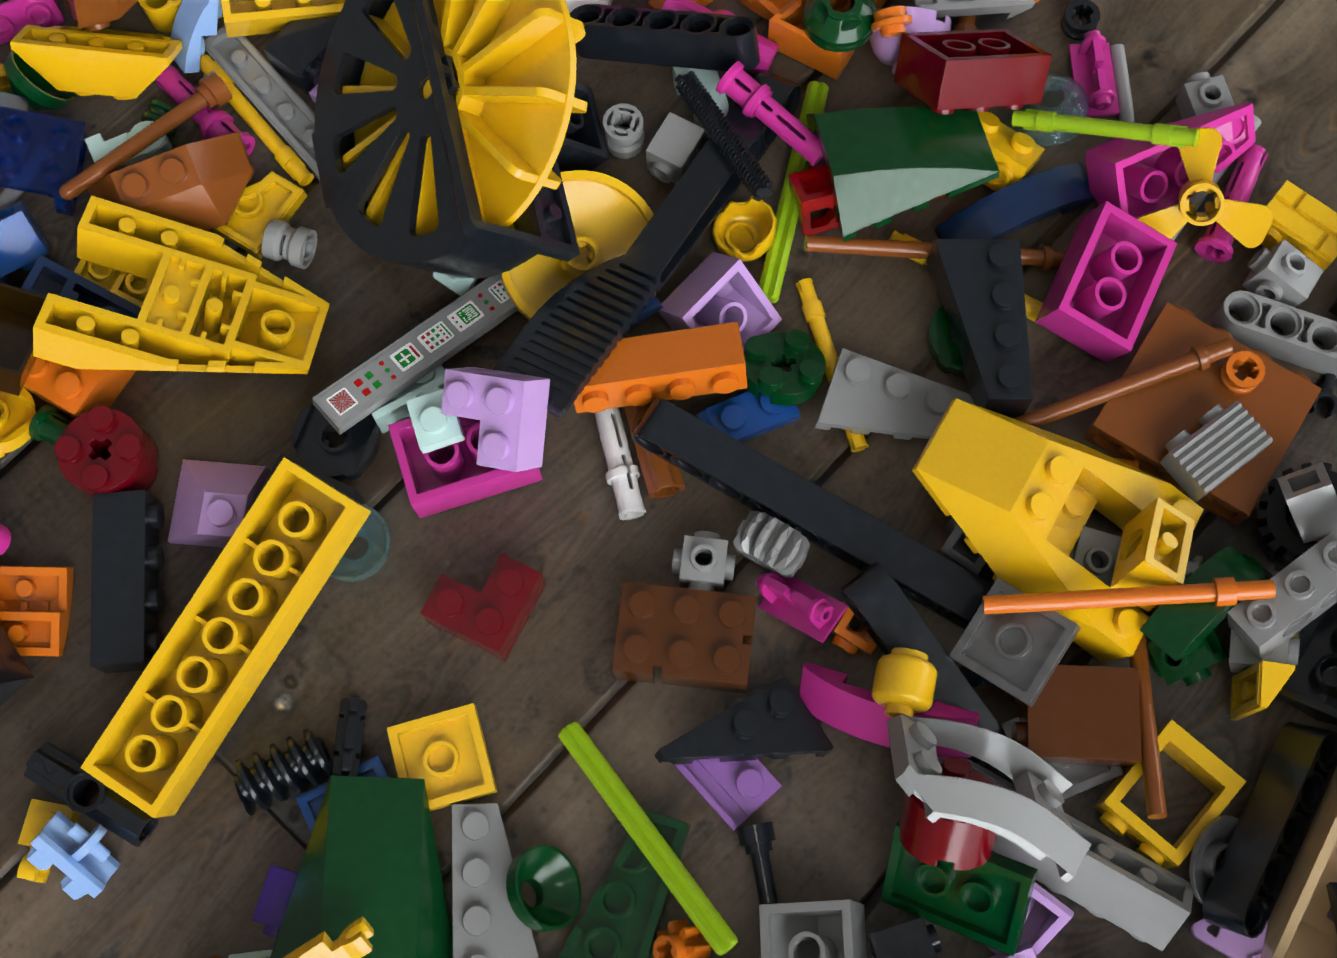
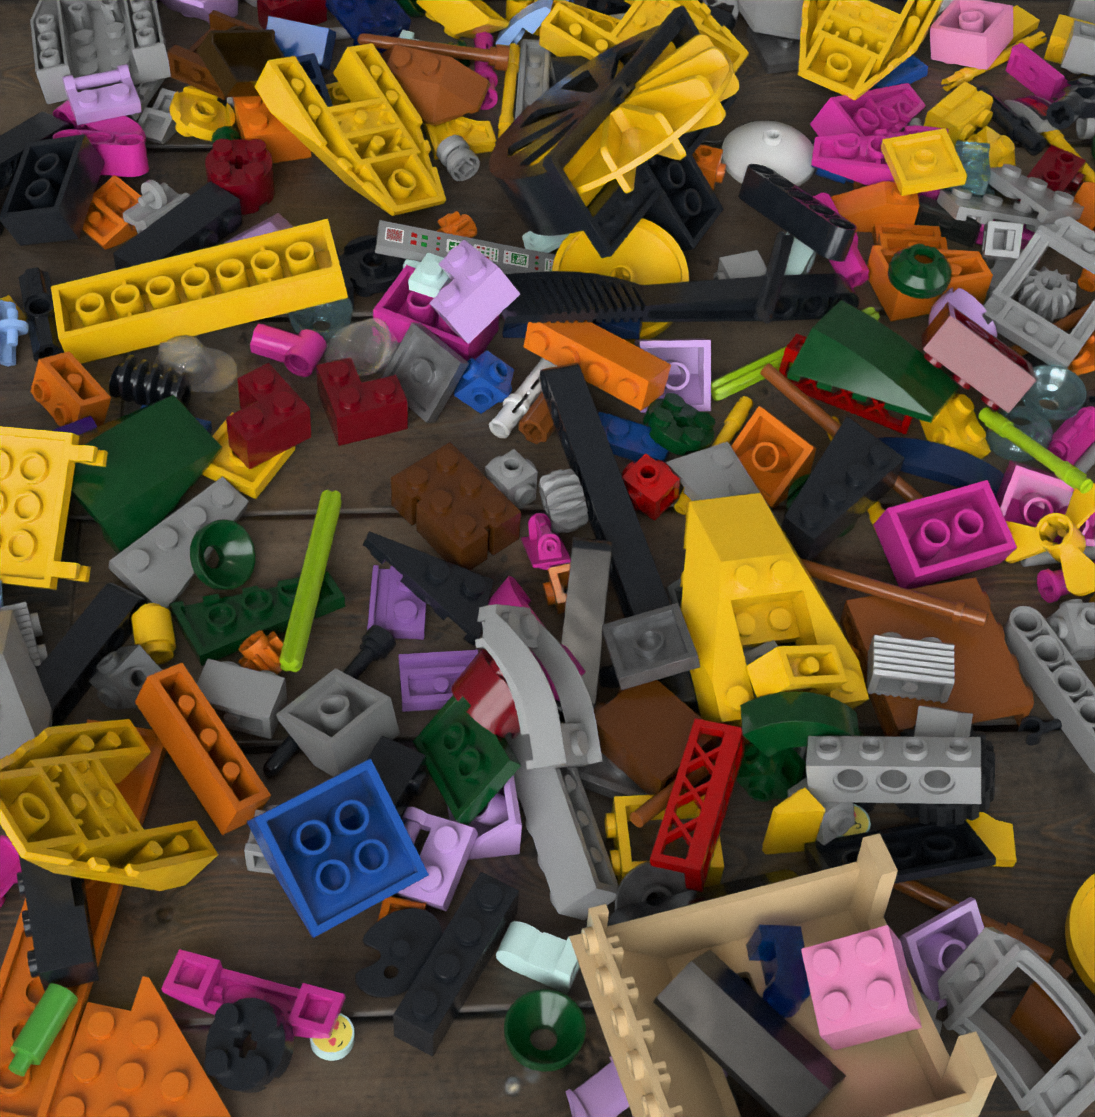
camera: 35 degrees right, 20 degrees down
(69, 572) = (152, 205): none -> light grey hips
(221, 858) = (68, 390): none -> orange brick
(290, 702) = (207, 367): none -> clear piece
(349, 737) = (209, 398): black axle -> none
(371, 601) = (297, 351): none -> dark pink piece
(377, 331) = (458, 225): none -> orange gear
(432, 546) = (367, 343): none -> clear piece
(444, 703) = (269, 417): none -> dark red brick
(516, 522) = (426, 371): none -> flat silver plate
(576, 481) = (484, 382): none -> blue brick
(619, 139) = (720, 241): light grey wheel -> none
(745, 229) = (737, 344): yellow hair -> none
(755, 97) = (810, 265): dark pink pin -> none
(835, 448) = (650, 485): none -> red brick
(844, 821) = (429, 677): none -> medium lavender plate
(889, 327) = (773, 455): none -> orange slope
(891, 21) = (946, 289): orange plate -> none
(904, 682) = (556, 603): yellow head -> none
(1051, 29) = (1058, 386): none -> clear light blue piece
(1203, 743) = (712, 810): none -> red fence
(1220, 591) = (809, 705): orange bar -> none
(1249, 360) = (976, 654): orange bush -> none

